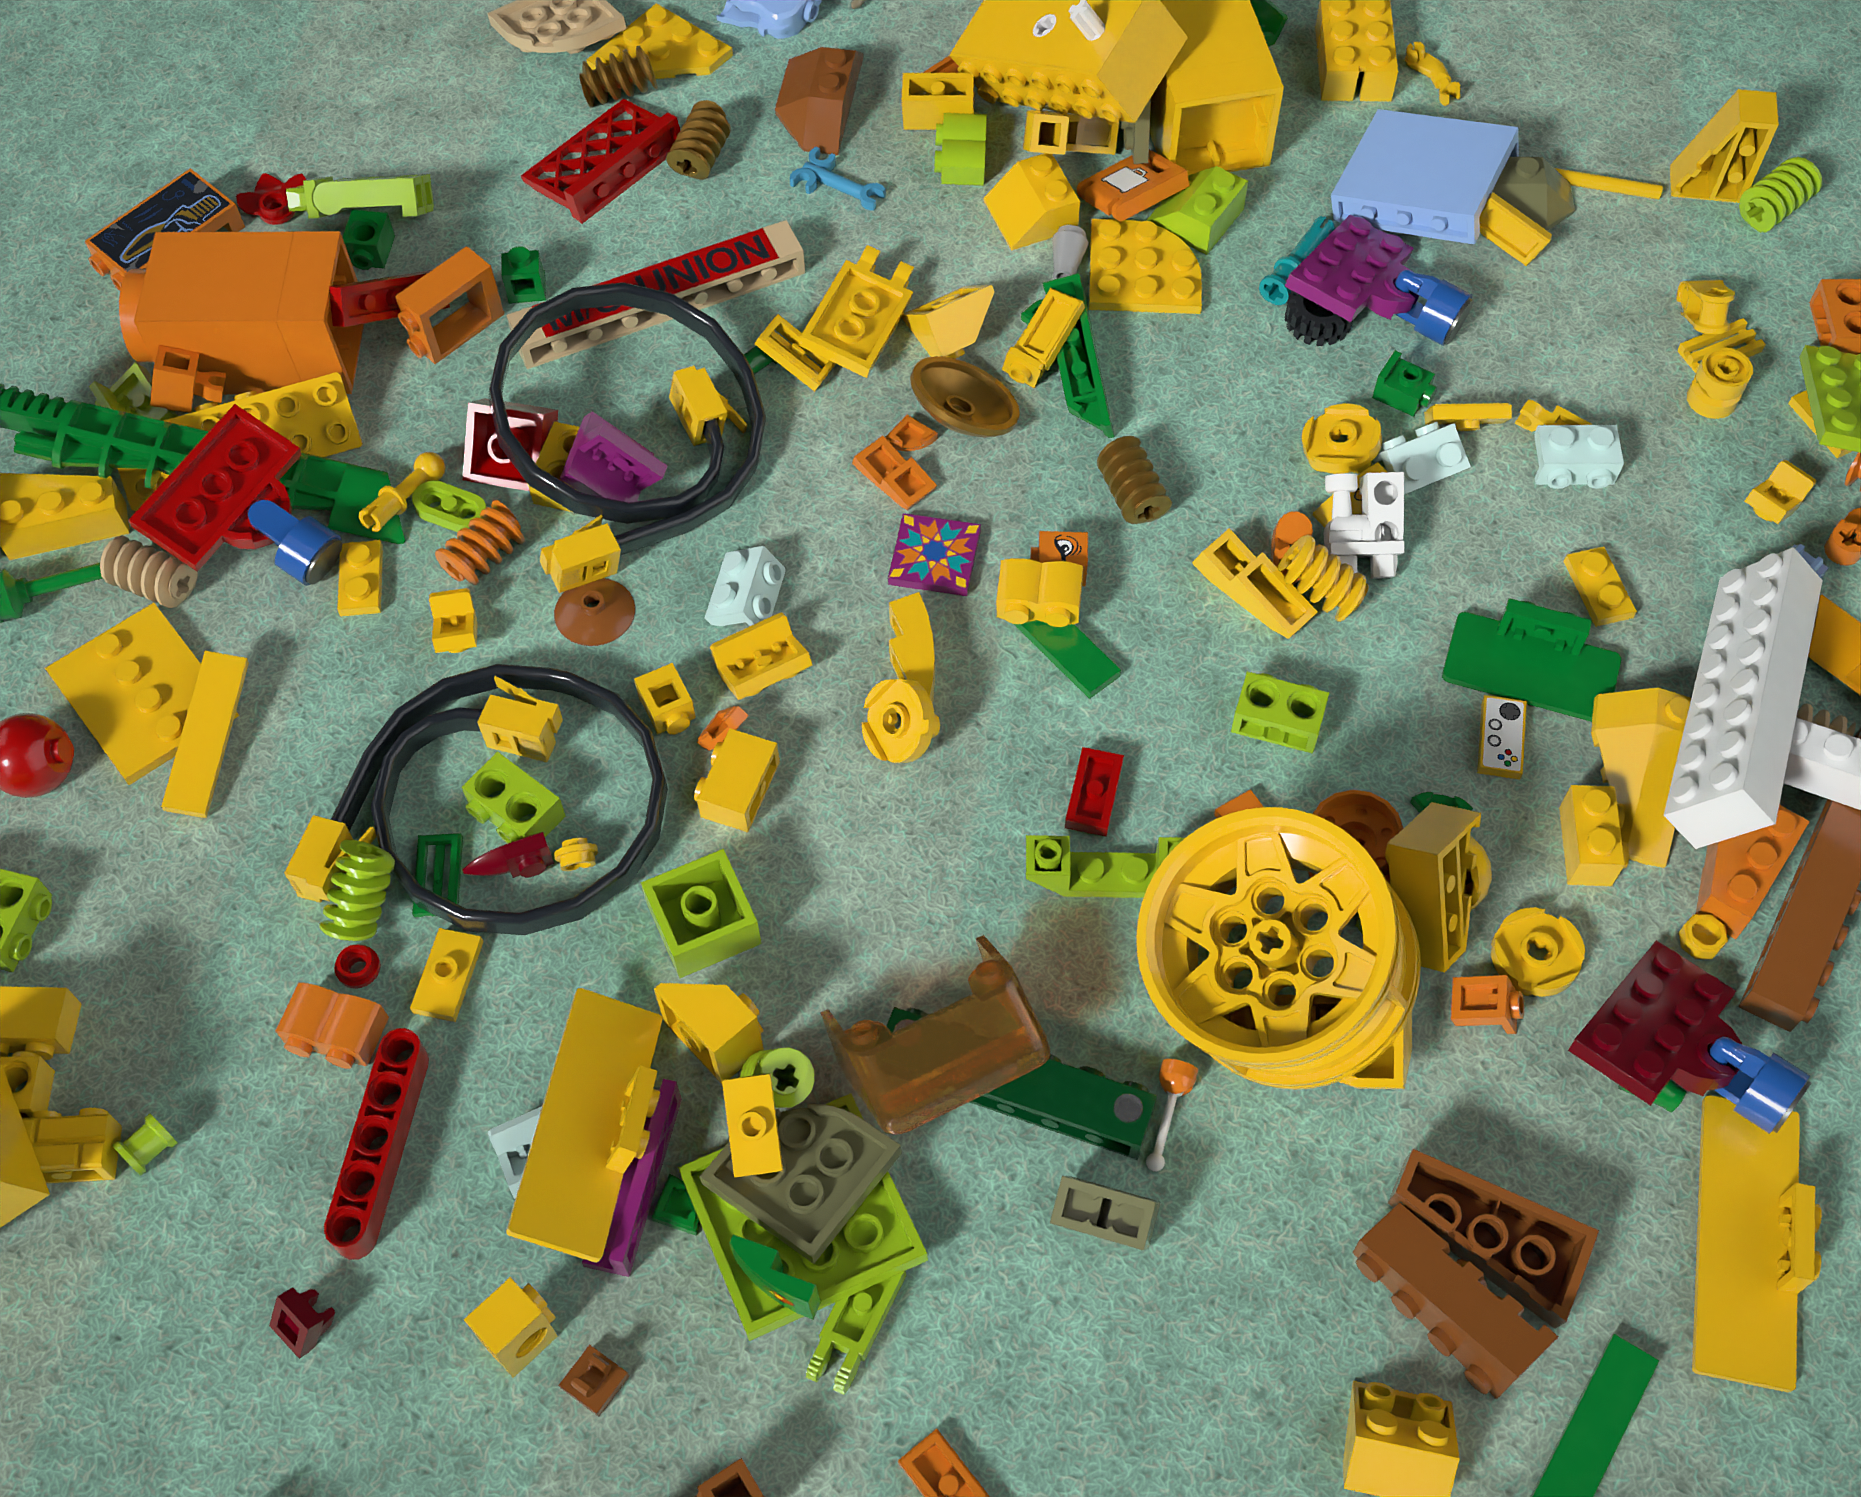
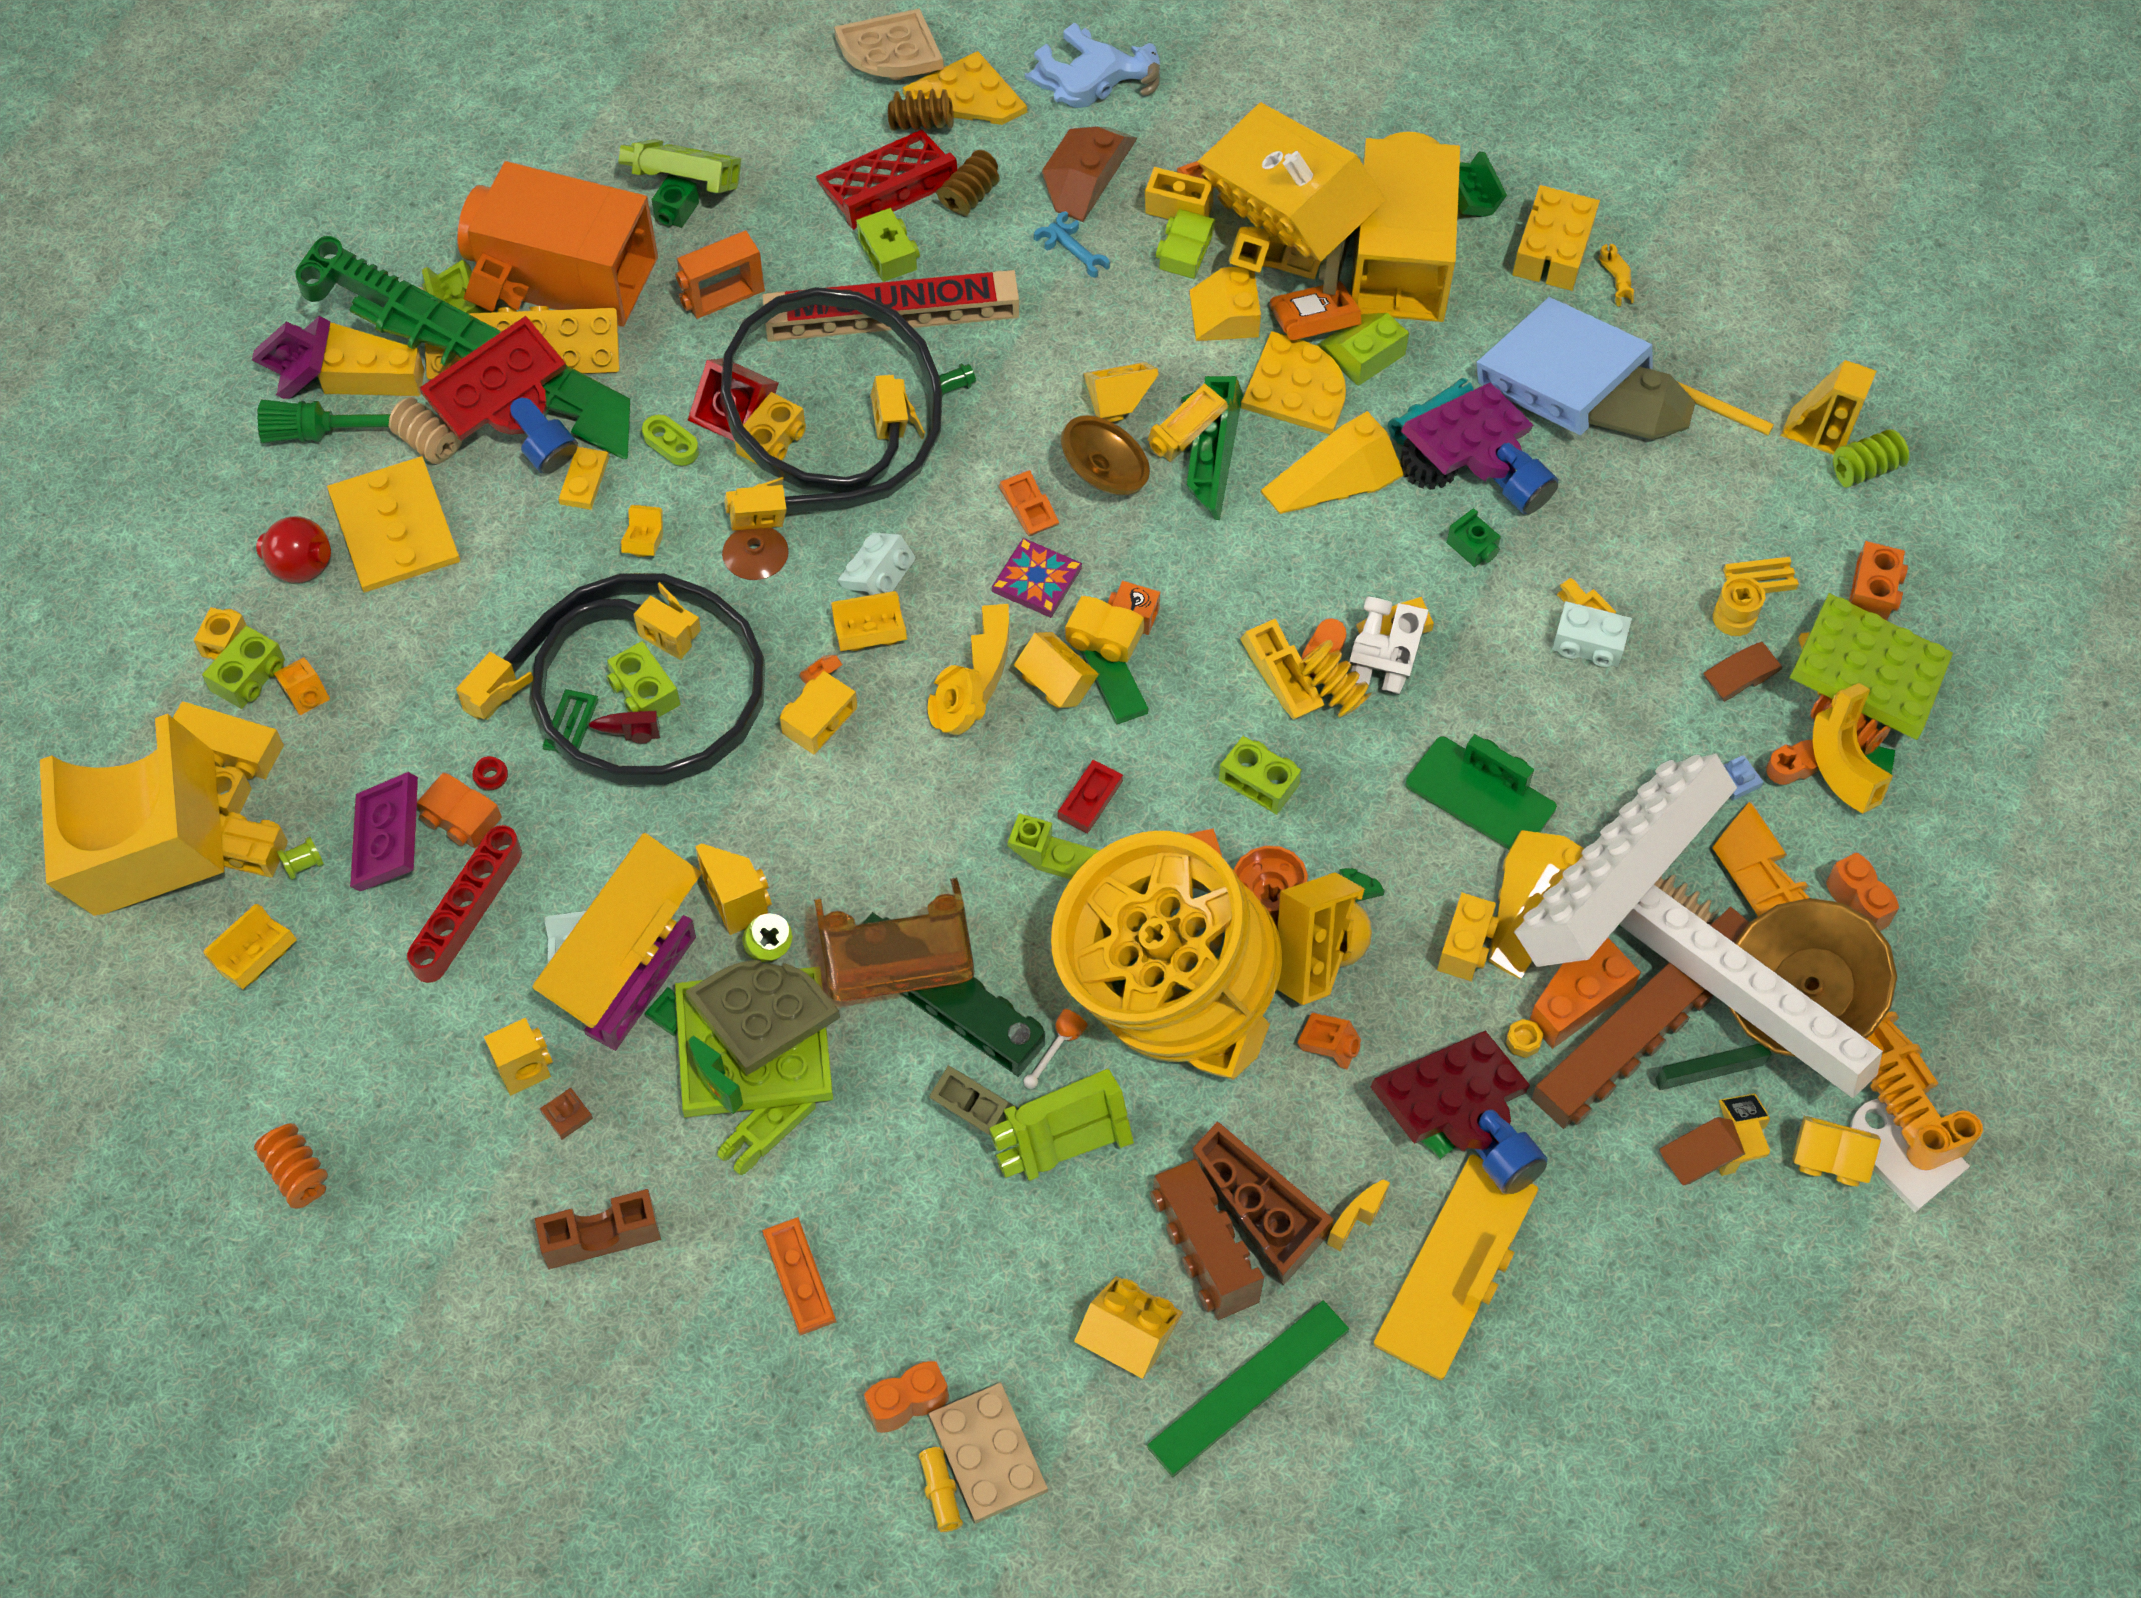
camera: 15 degrees right, 0 degrees up
(83, 922) = (302, 685): none -> light orange bracket
(110, 1283) = (249, 946): none -> yellow bracket
(180, 206) = (532, 142): panel -> none
(205, 734) = (430, 568): yellow tile -> none
(245, 1080) = (384, 832): none -> magenta plate
(270, 199) = (609, 145): red plate -> none
(298, 1322) = (371, 1012): dark red tile -> none
(361, 891) = (508, 719): lime piece -> none
(369, 299) = (657, 256): red piece -> none
(392, 501) = (625, 423): yellow pin -> none
(447, 975) = (553, 798): yellow plate -> none
(480, 543) = (683, 475): orange piece -> none
(523, 267) = (790, 256): green brick -> none
(576, 853) = (677, 735): yellow plate -> none
(609, 462) = (803, 436): magenta bracket -> none
(629, 228) = (887, 244): none -> lime brick
(665, 699) = (784, 636): yellow brick -> none
(701, 913) = (754, 804): lime brick -> none
(752, 1125) = (733, 963): yellow plate -> none
(793, 356) = (979, 385): yellow tile -> none
(858, 314) = (1046, 364): yellow tile -> none
(911, 434) = (1054, 475): orange tile -> none
(1000, 654) = (1055, 670): none -> yellow brick
(1068, 250) = (1240, 354): light grey cone -> none
(1133, 481) = (1216, 559): pearl gold piece -> none
(1225, 1210) = (1062, 1126): none -> lime hips
(1228, 342) = (1344, 464): none -> yellow wedge
(1342, 457) = (1404, 585): yellow plate -> none
(1427, 458) = (1464, 603): light aqua bracket -> none
(1468, 416) = (1514, 578): yellow plate -> none
(1502, 737) = (1432, 843): tile -> none
(1512, 230) = (1618, 430): yellow tile -> none
(1527, 973) = (1387, 1032): yellow plate -> none
(1599, 586) = (1566, 746): yellow plate -> none
(1615, 1202) = (1362, 1208): none -> yellow slope
(1706, 304) = (1759, 538): yellow piece -> none
(1750, 452) = (1742, 669): none -> dark orange slope
(1781, 492) = (1749, 712): yellow bracket -> none

